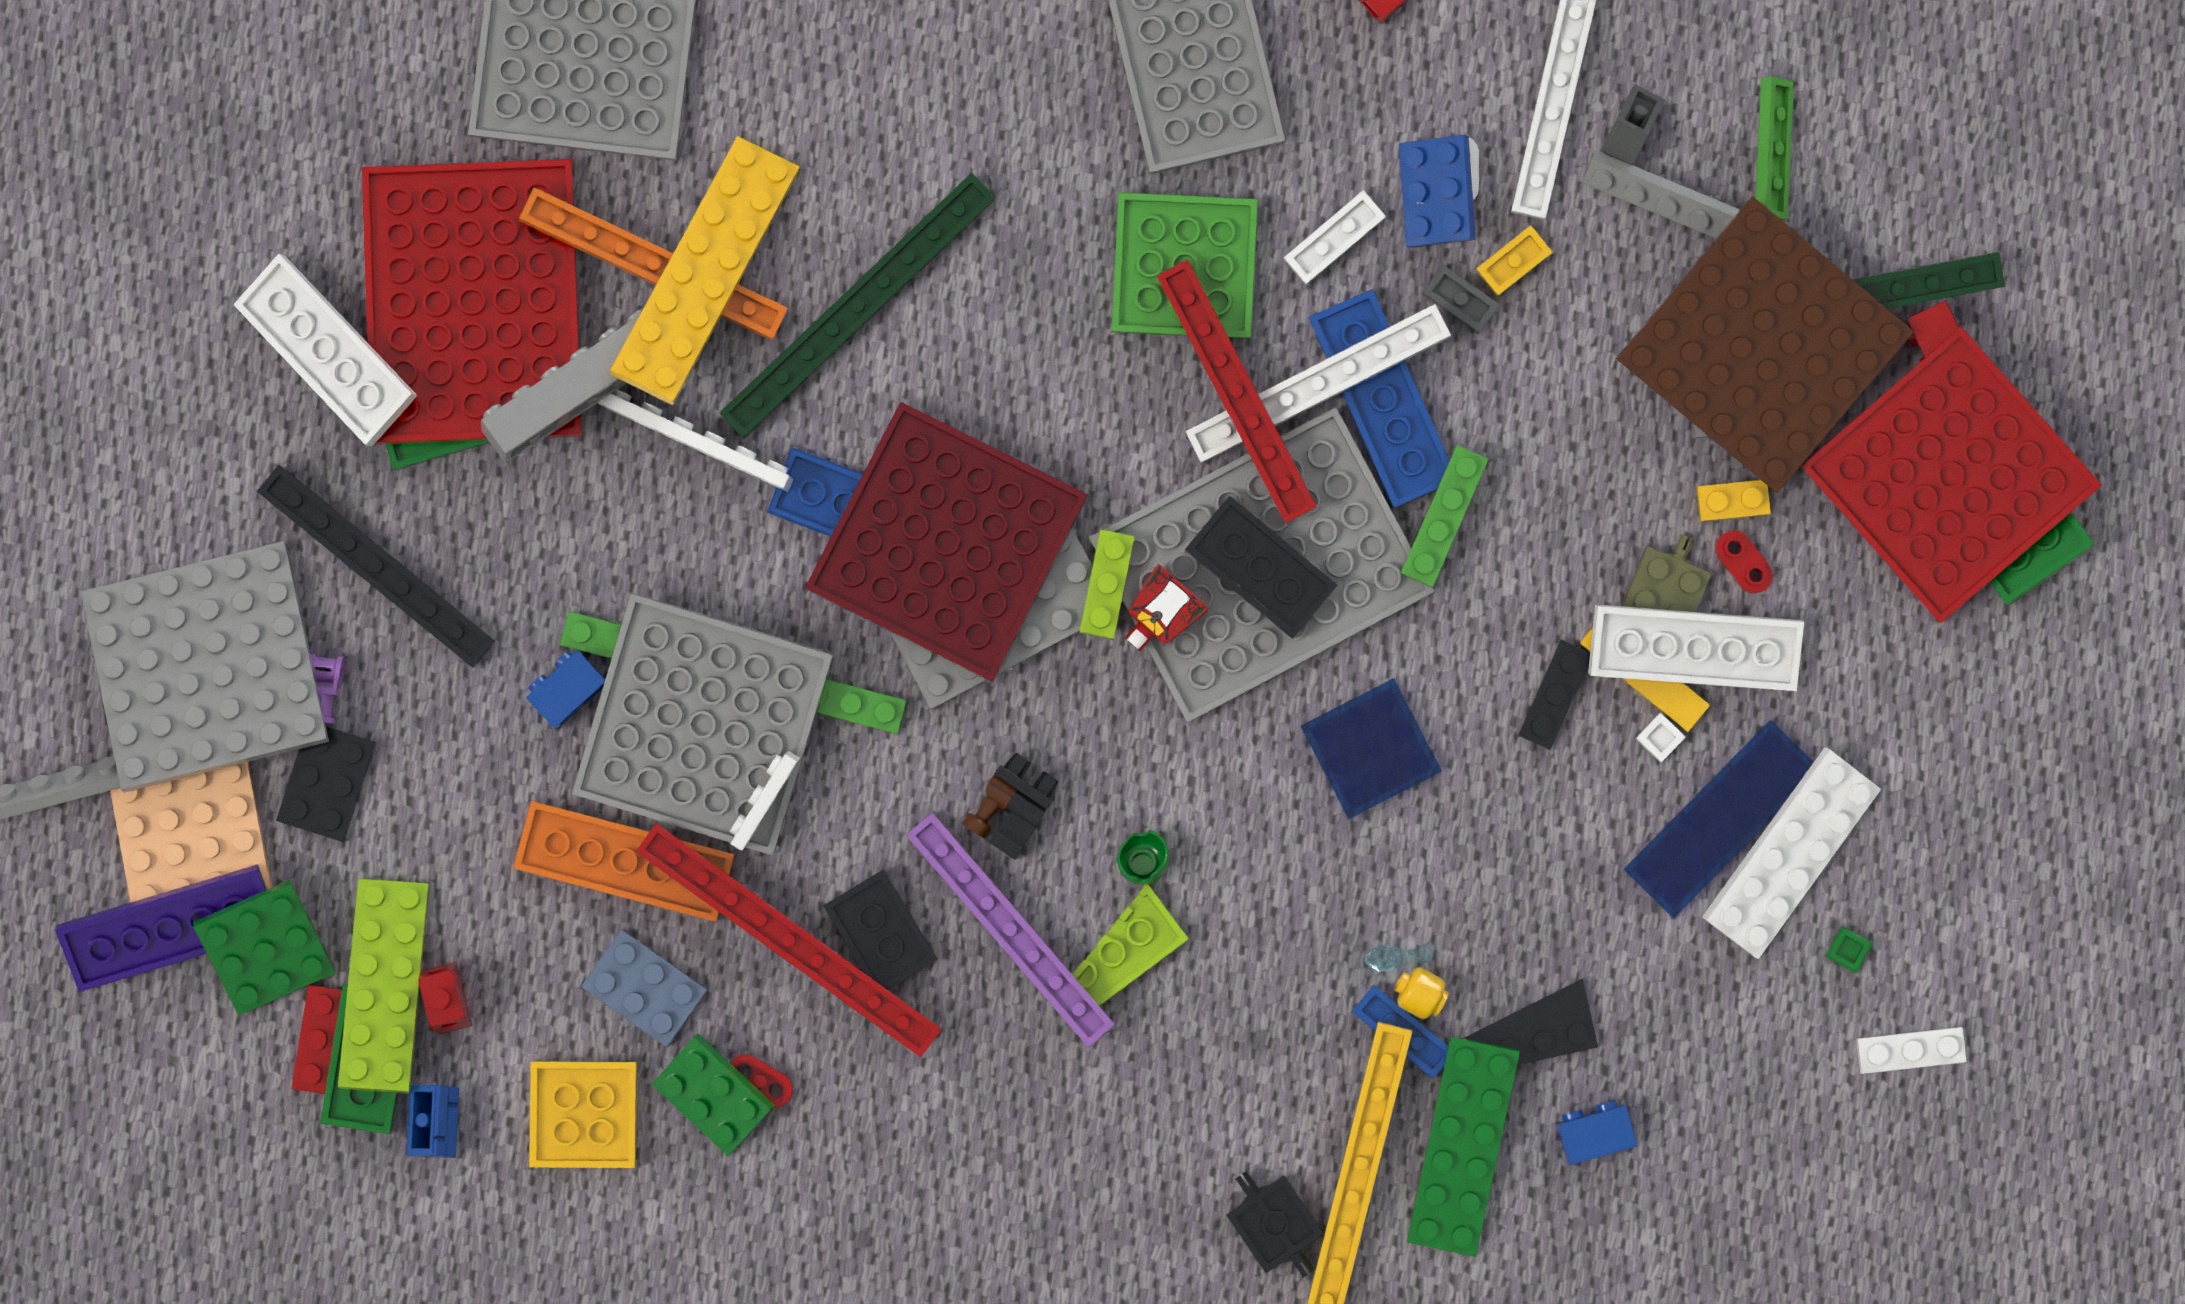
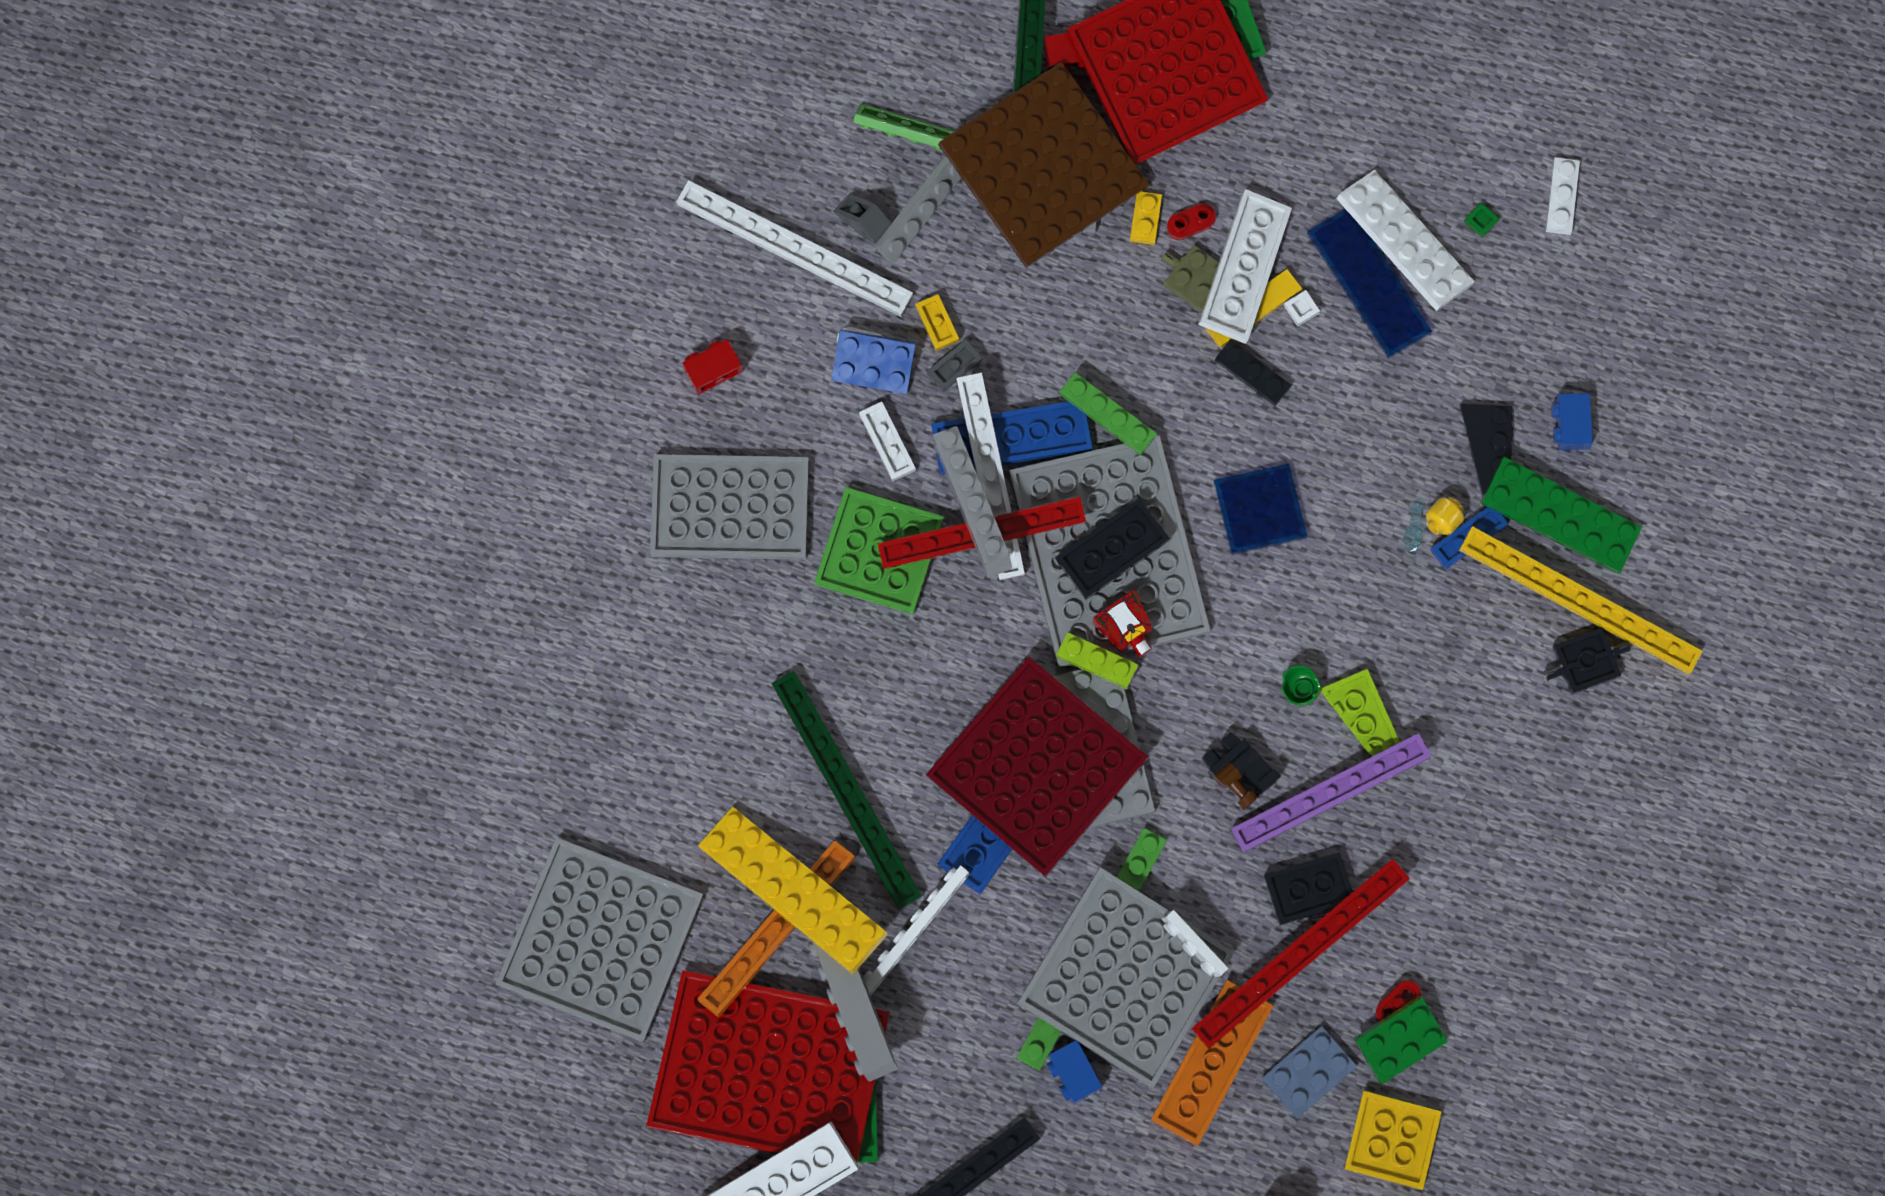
camera: 80 degrees left, 10 degrees down
(1270, 366) = (972, 502): none -> light grey brick

